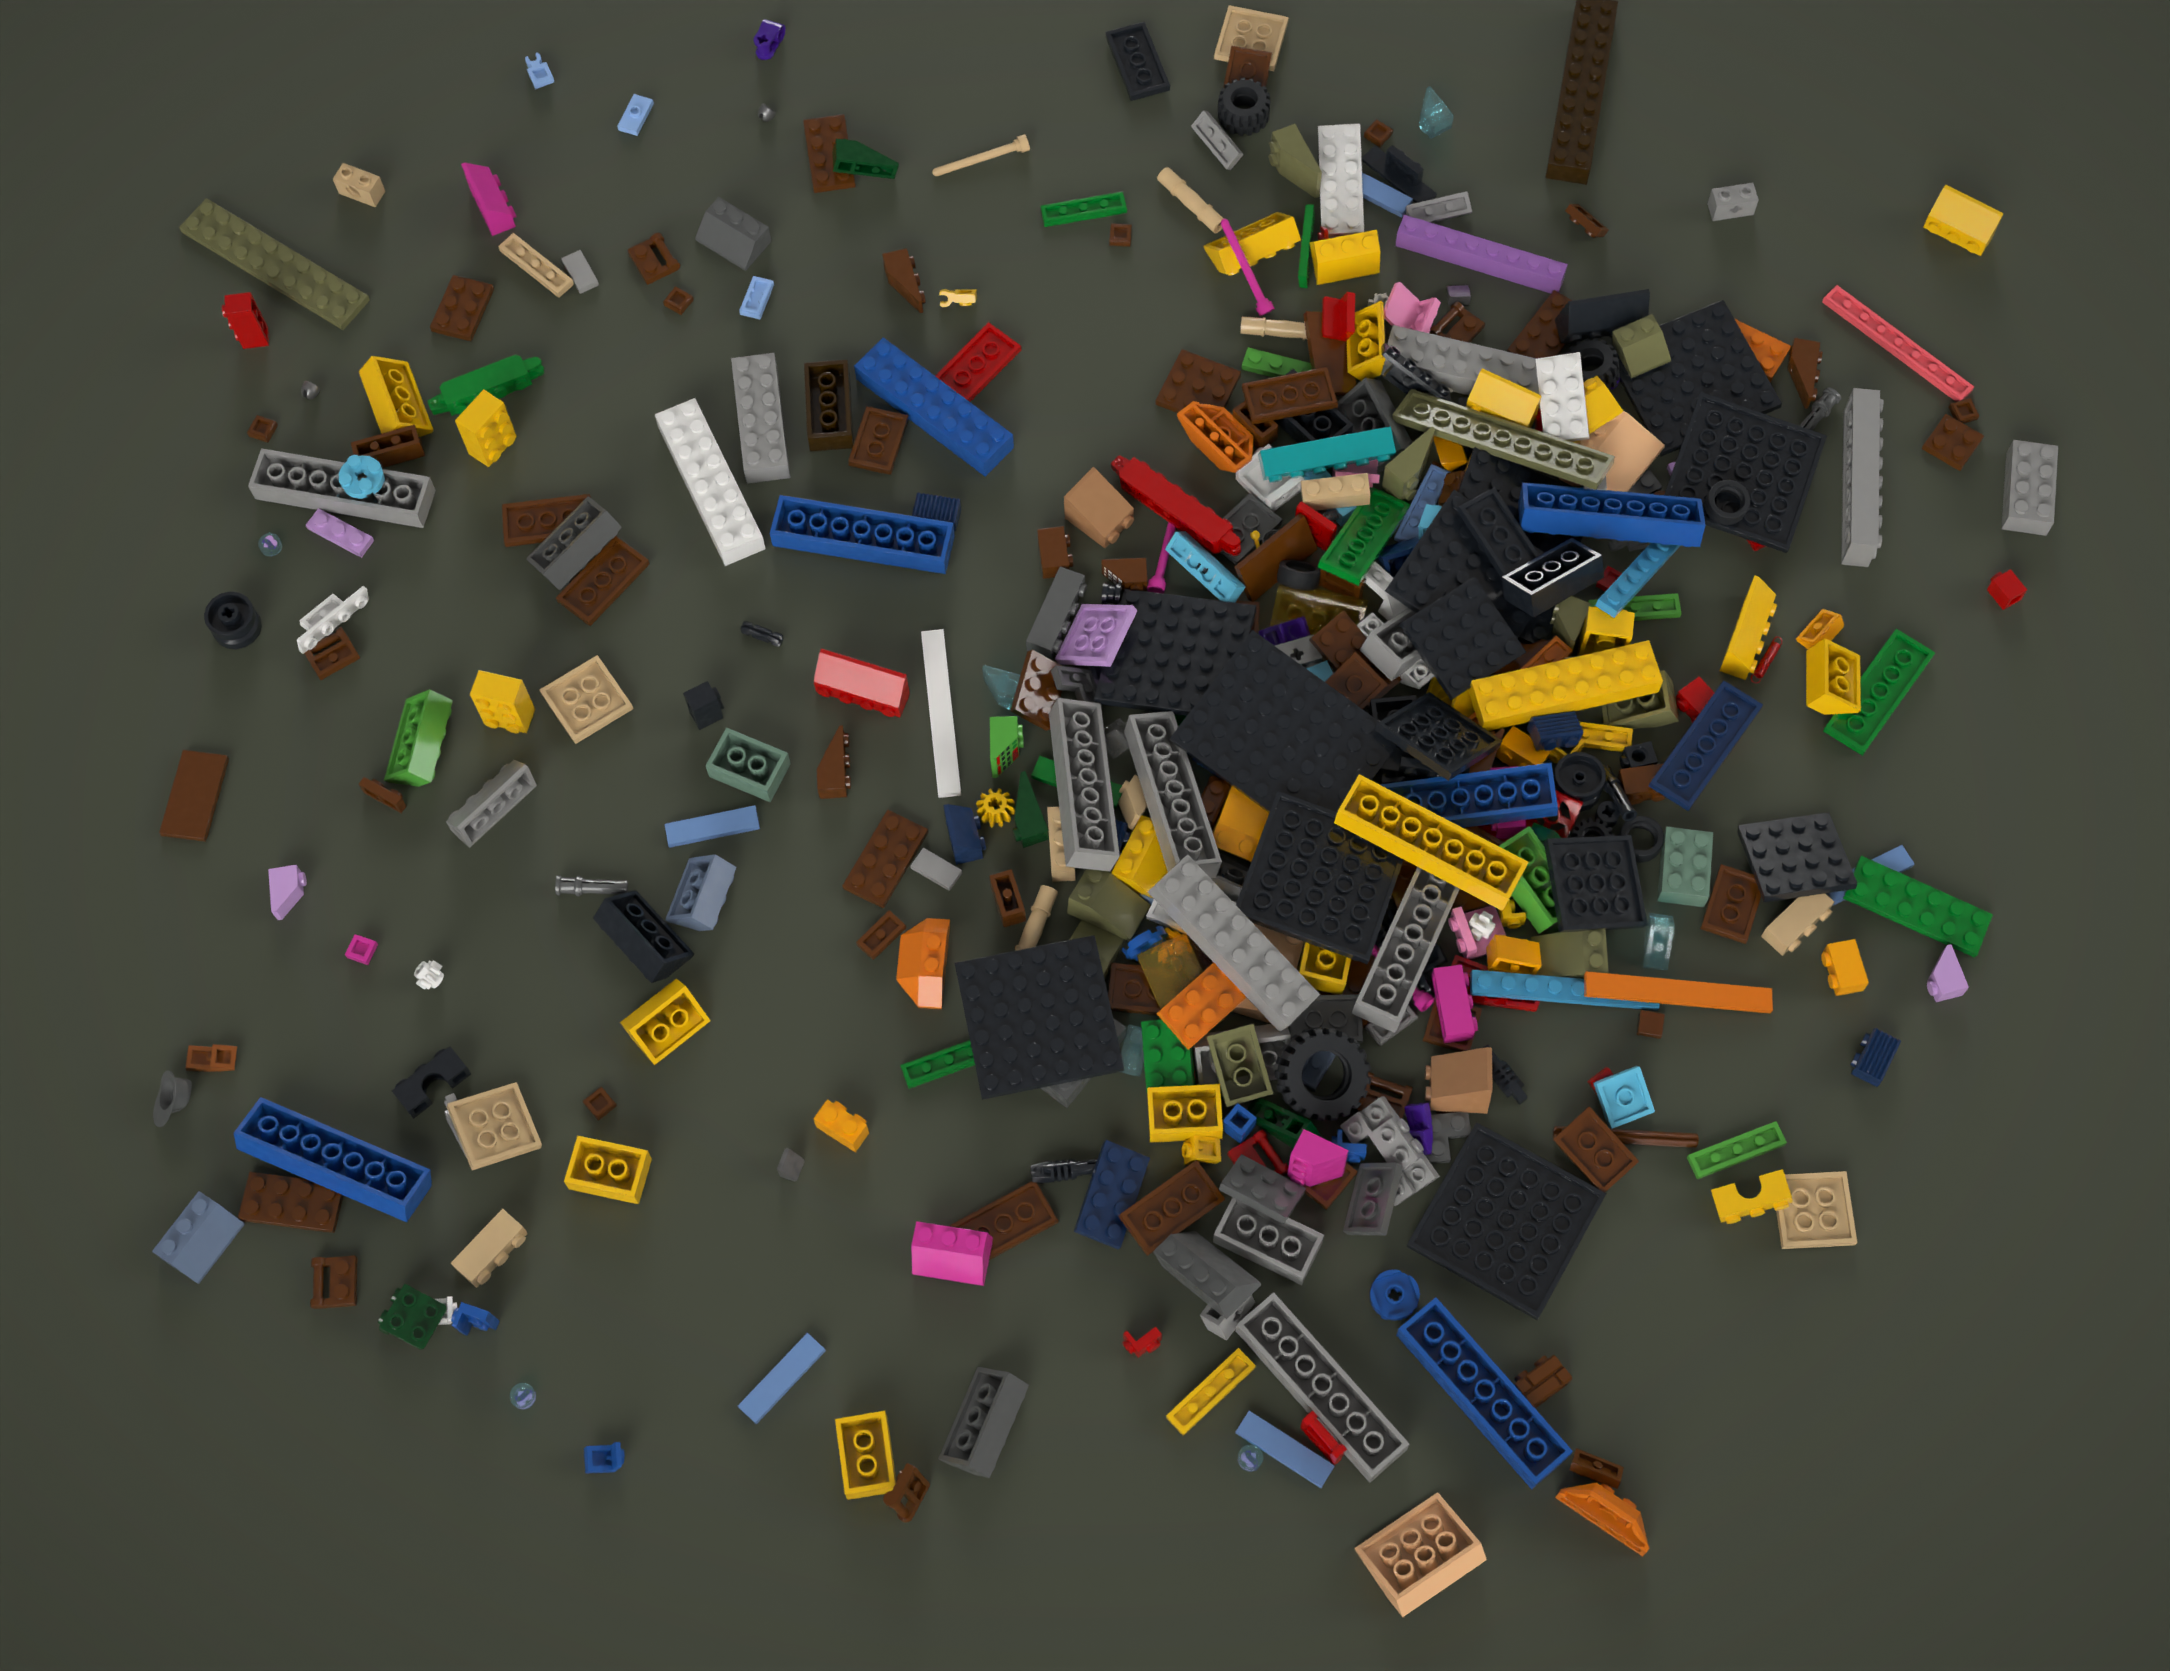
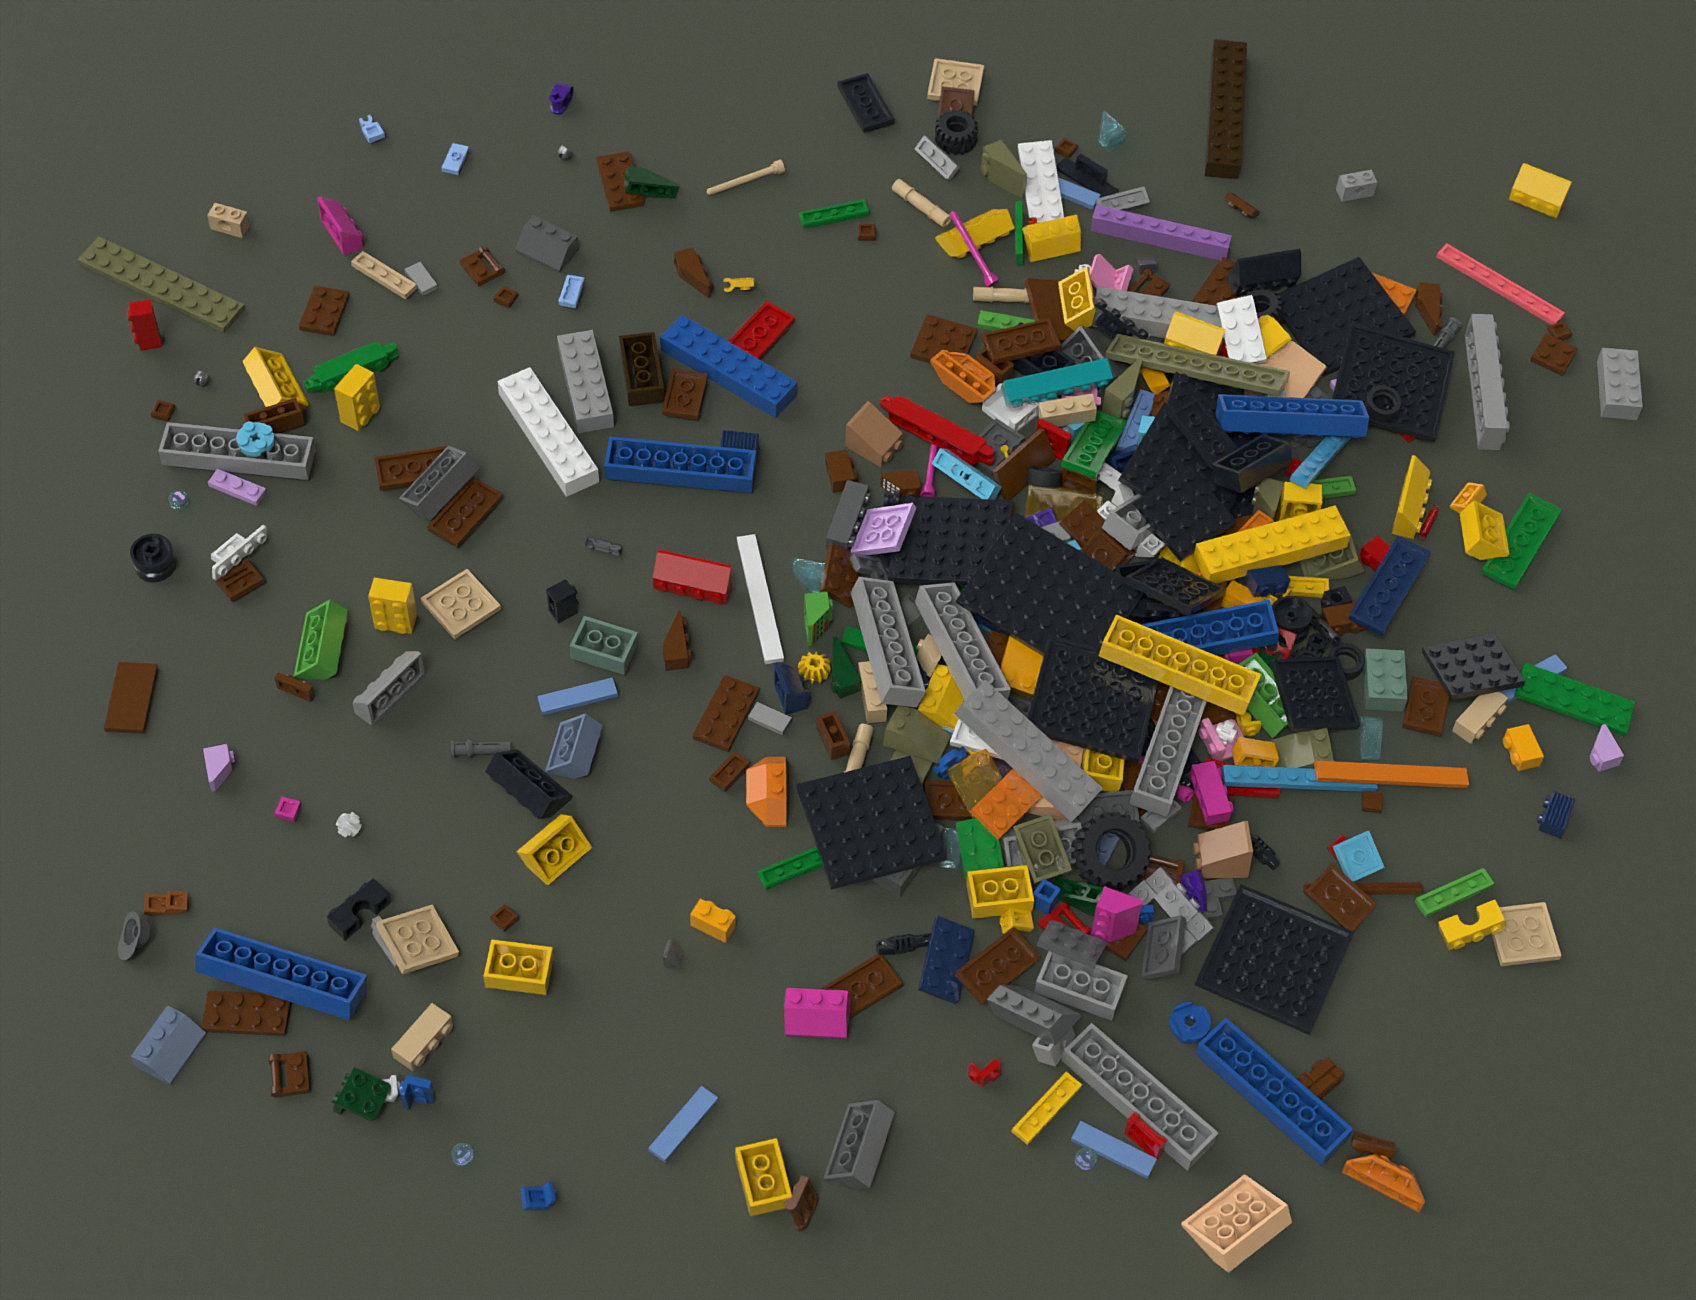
camera: 10 degrees left, 10 degrees down
(1338, 317) = (1053, 282): red panel -> none
(1641, 346) = (1298, 292): olive slope -> none
(2006, 589) = (1611, 459): red brick -> none

